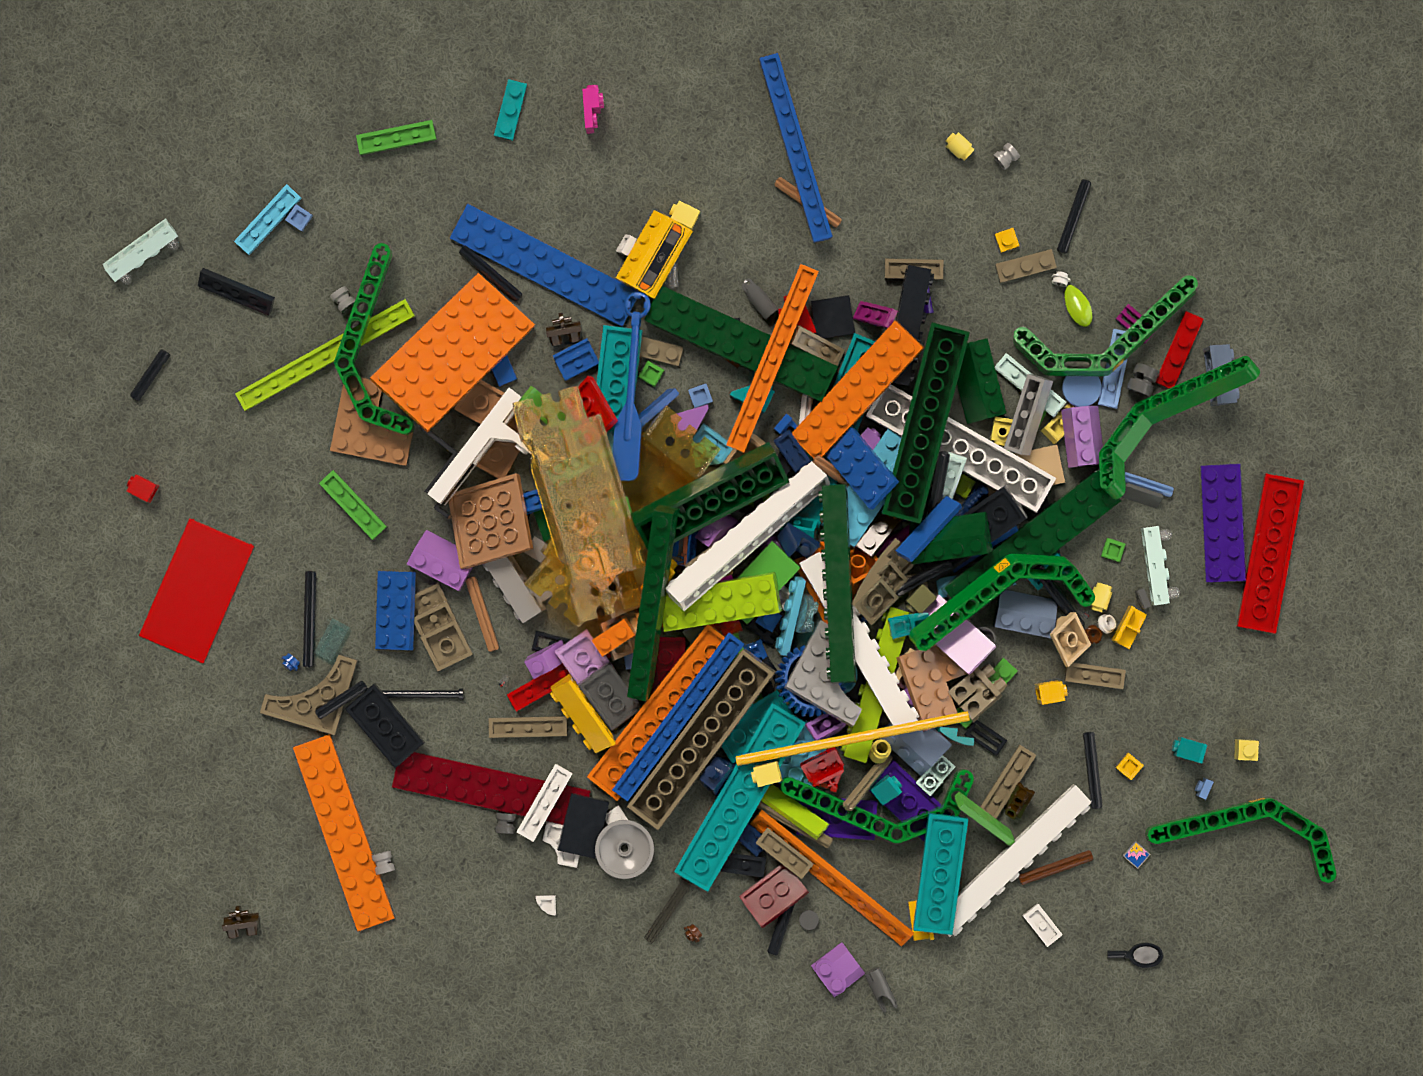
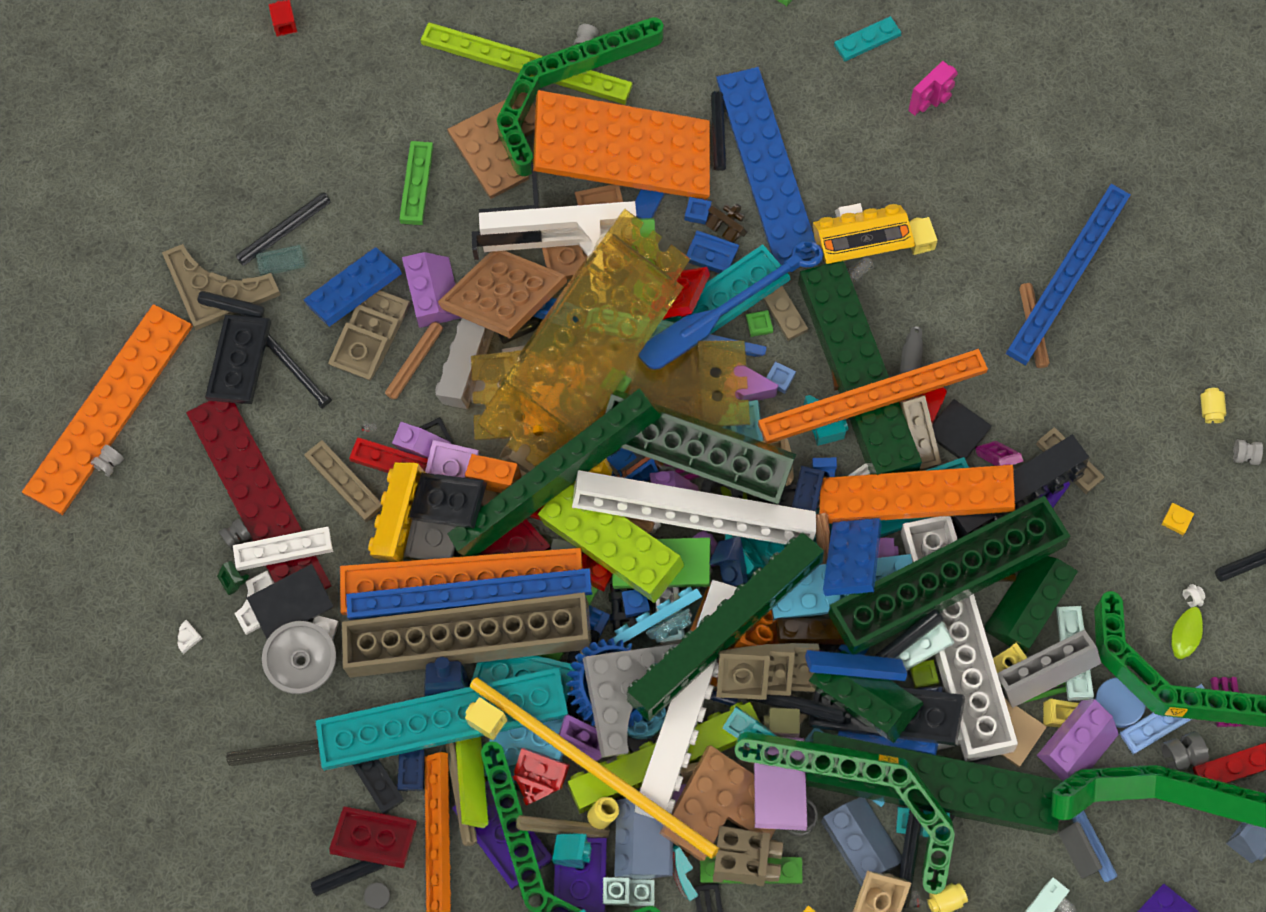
camera: 50 degrees right, 20 degrees down
(196, 590) = (230, 126): red piece -> none
(290, 662) = (230, 242): blue plate -> none
(533, 848) = (231, 578): none -> dark green tile
(538, 340) = (697, 210): none -> blue plate
(607, 679) = (447, 500): none -> black tile
(692, 933) = (269, 793): reddish brown plate -> none
(784, 853) = (422, 809): dark tan plate -> none
(1025, 266) = (1173, 555): dark tan plate -> none
(1113, 550) = (1002, 871): bright green tile -> none

